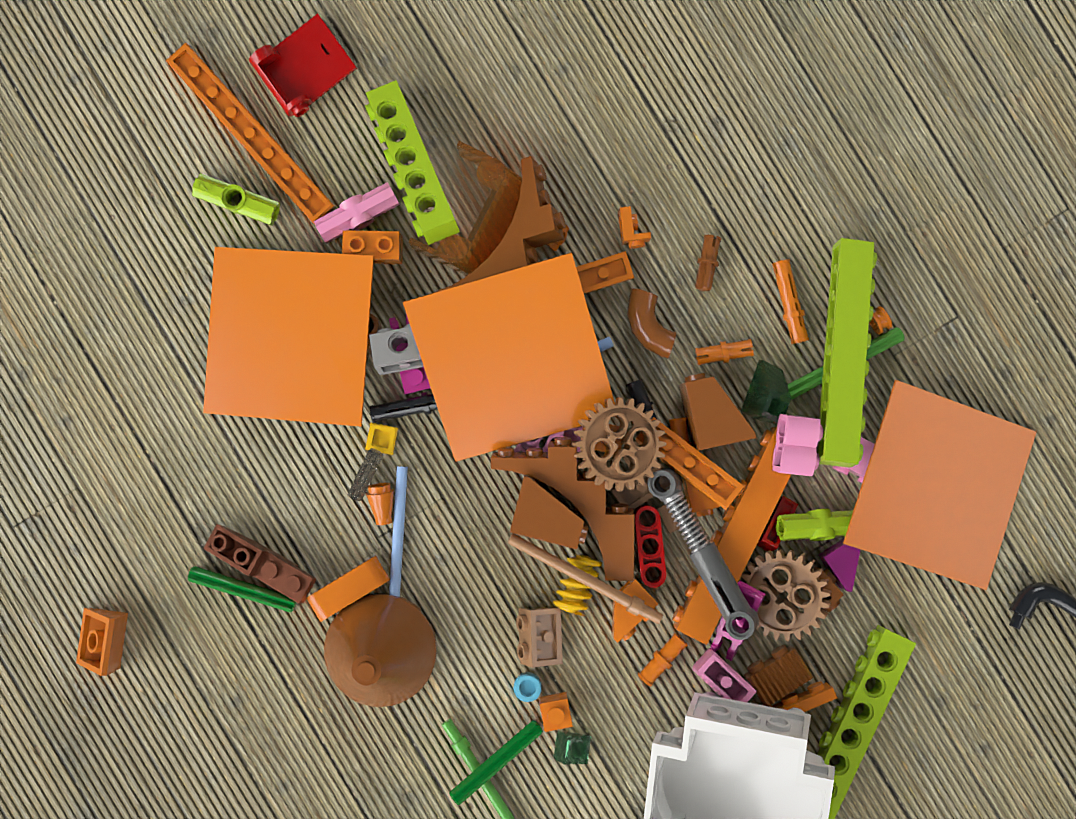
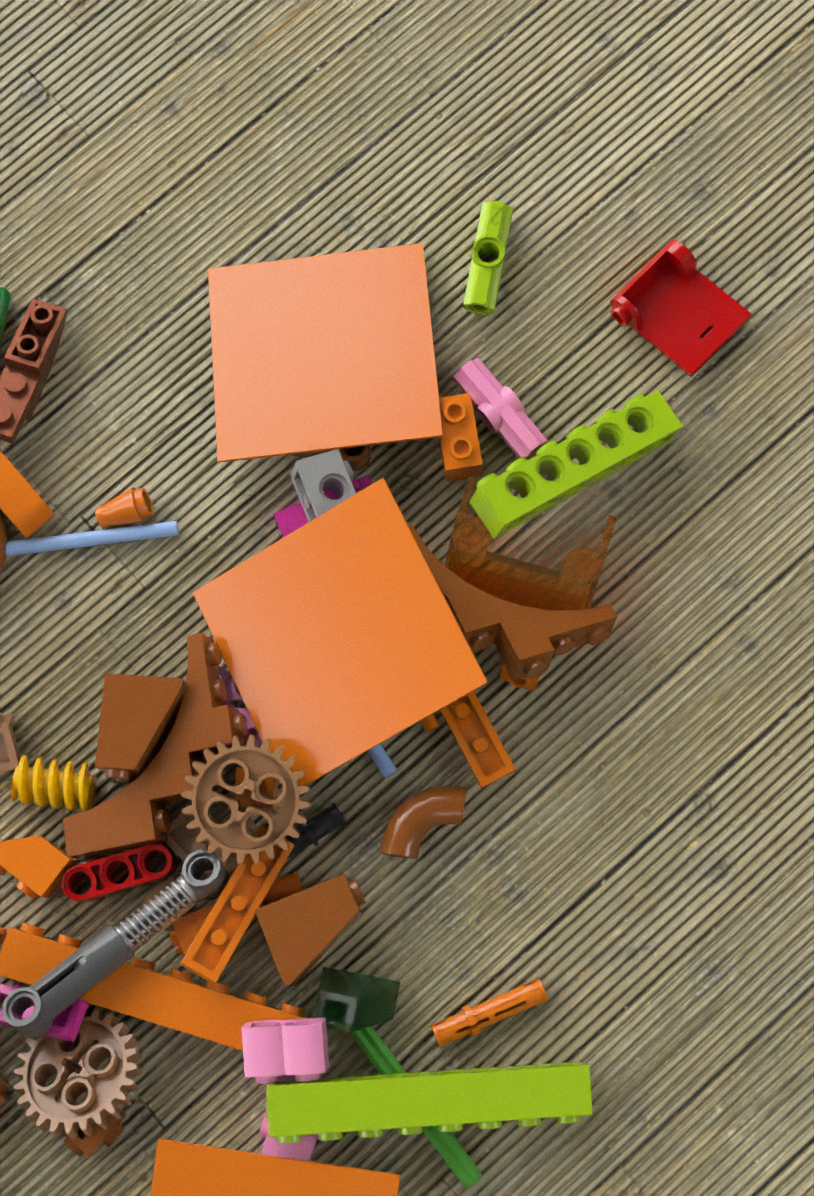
camera: 90 degrees right, 10 degrees down
(250, 133) = (577, 262): orange tile -> none
(365, 474) = (159, 482): clear smoke axle -> none
(380, 412) = (245, 488): black pin -> none
(382, 438) = (210, 496): yellow tile -> none
(628, 224) = (553, 766): orange bracket -> none
(634, 604) = (34, 861): medium nougat bar -> none
(707, 262) = (521, 886): dark orange axle -> none
(724, 352) = (402, 931): orange pin -> none
(769, 539) = (176, 1049): red piece -> none
(813, 525) = (181, 1098): lime piece -> none
(842, 563) = (132, 1149): magenta slope -> none
(880, 320) = (486, 1145): orange bush -> none

